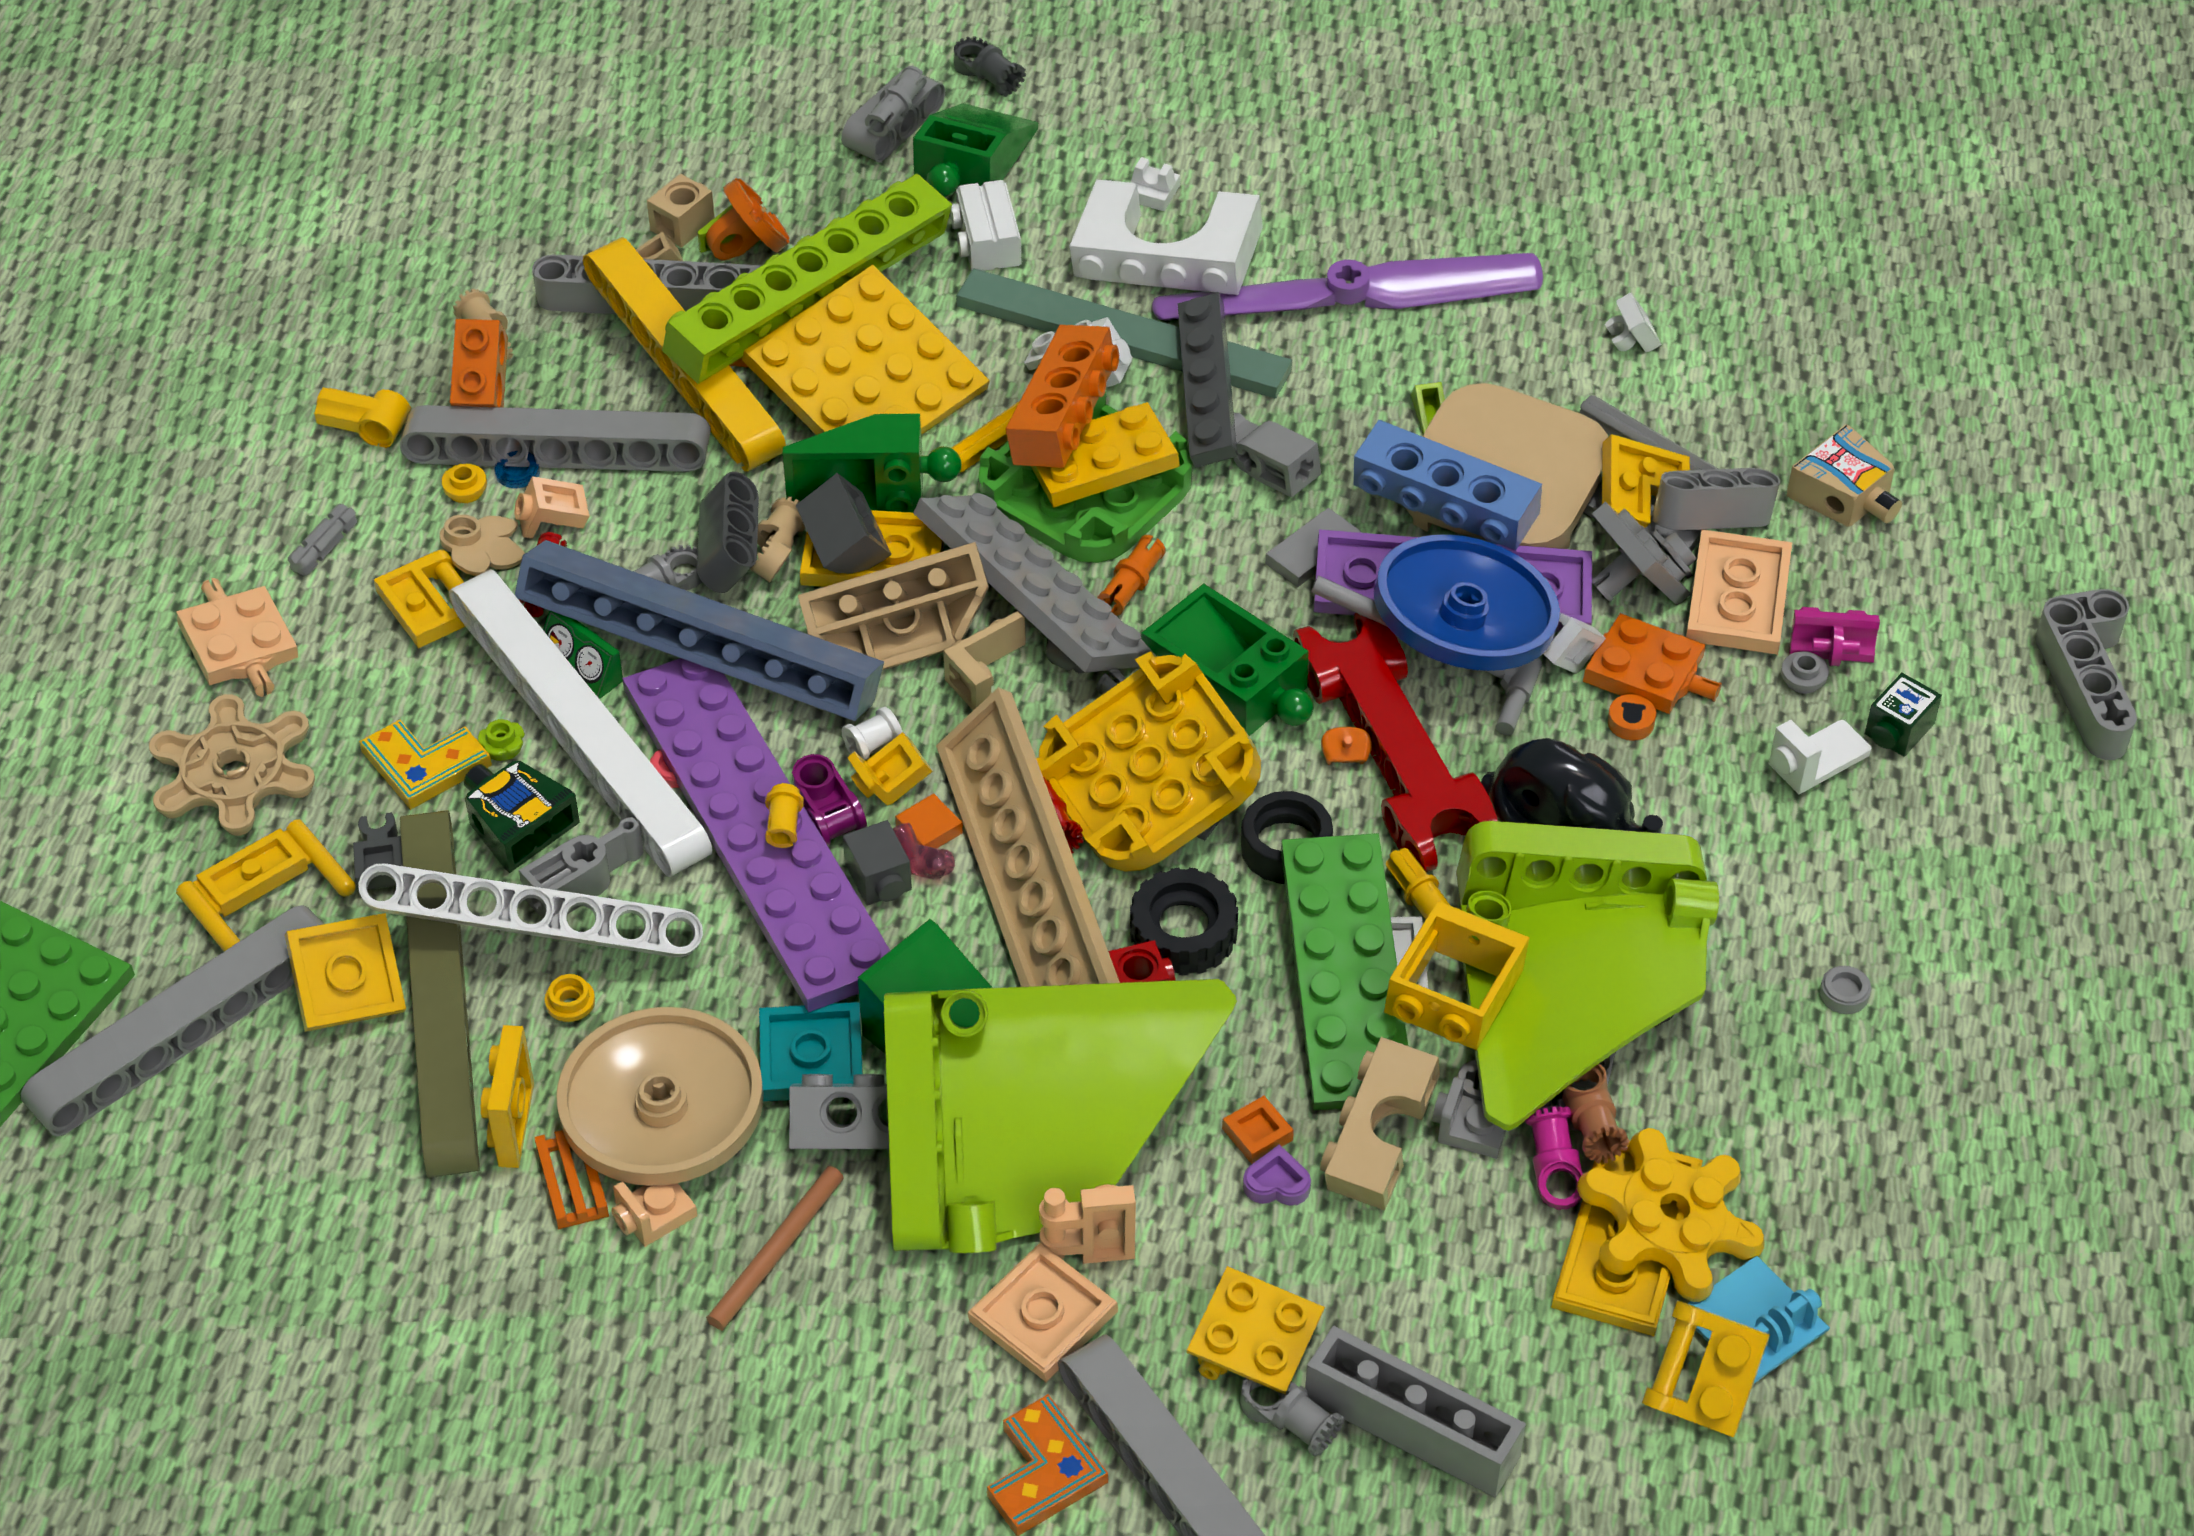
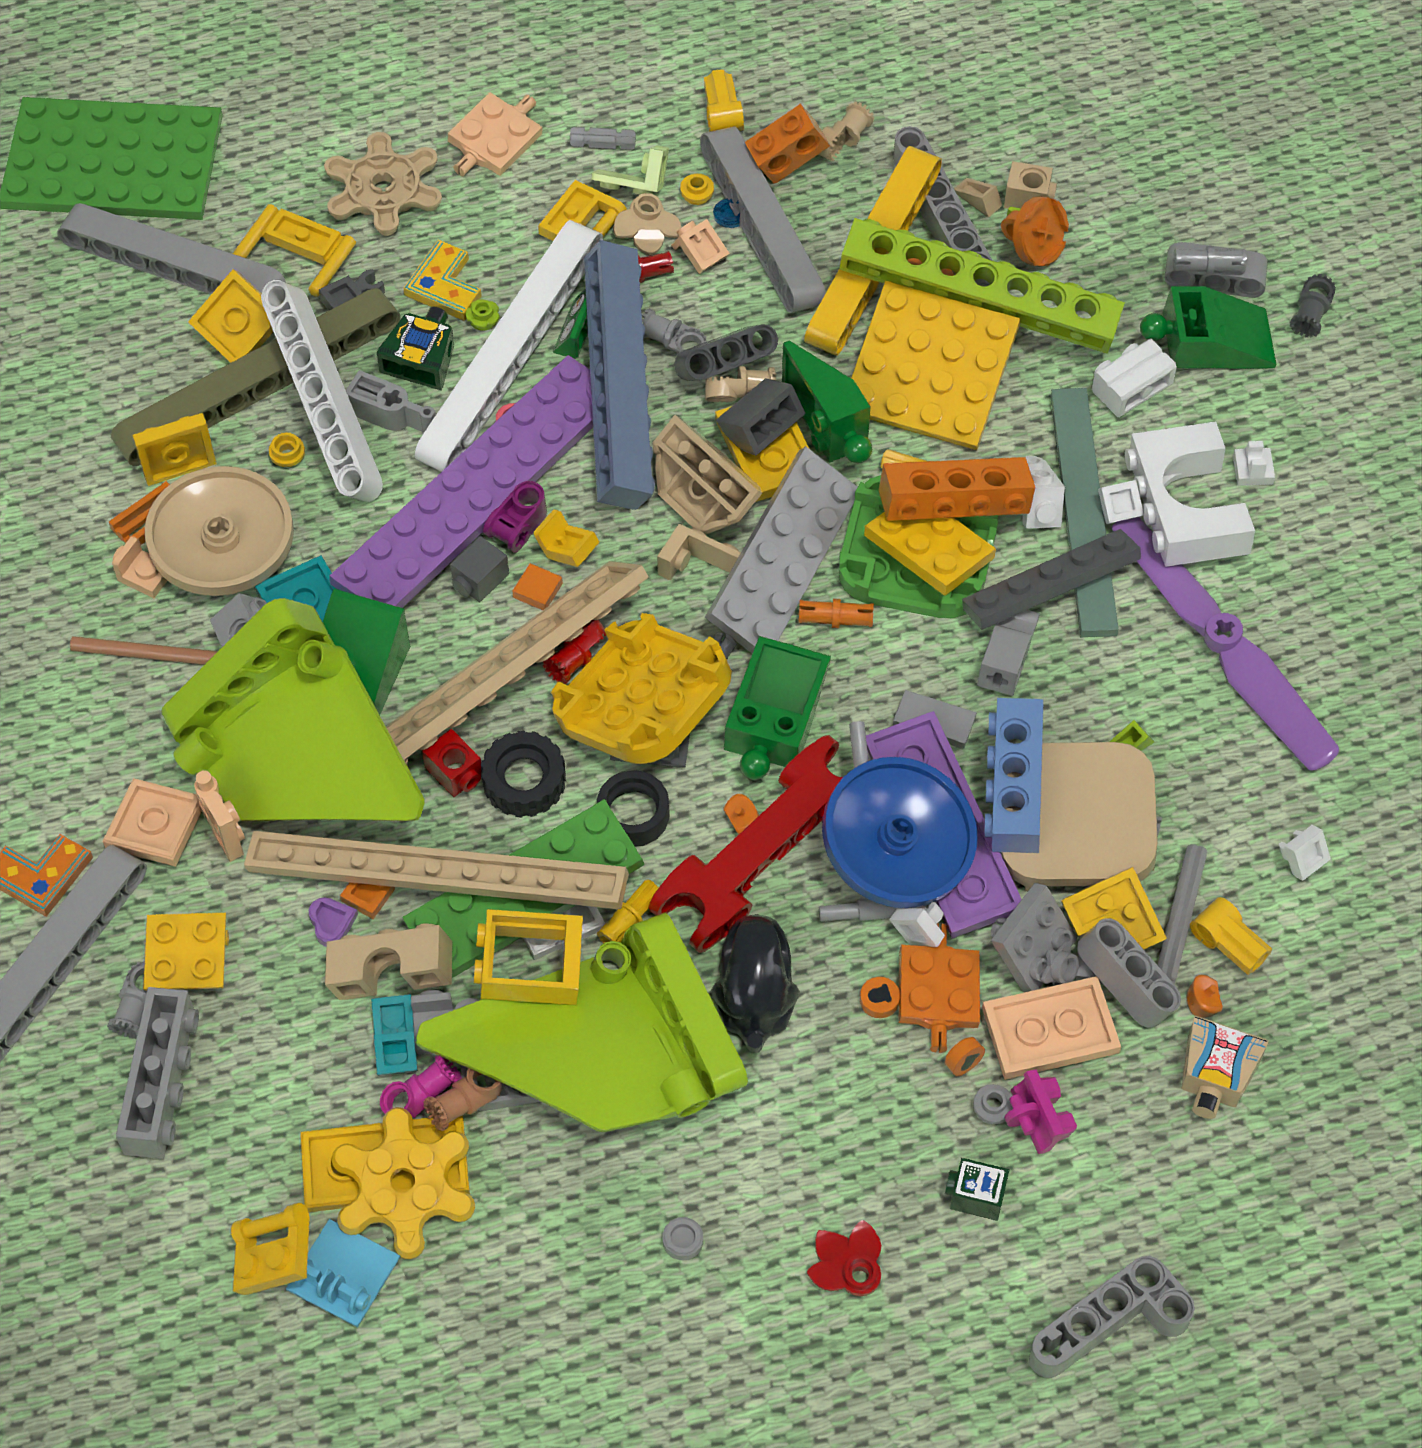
camera: 65 degrees right, 10 degrees up
(424, 504) = (653, 166): none -> yellowish green bracket
(783, 805) = (471, 491): yellow pin -> none
(871, 734) = (593, 518): white bush -> none
(924, 860) = (500, 592): clear pink arm -> none
(1142, 292) = (1121, 502): none -> white tile
(1284, 1034) = (437, 869): none -> tan plate
(1476, 1170) = (394, 1035): none -> teal slope
(1691, 420) = (1223, 928): none -> yellow piece
(1741, 669) = (964, 1056): none -> orange tile
(1759, 459) = (1204, 997): none -> orange piece
(1813, 759) = (905, 1140): white bracket -> none
(1929, 859) = (844, 1256): none -> red plate

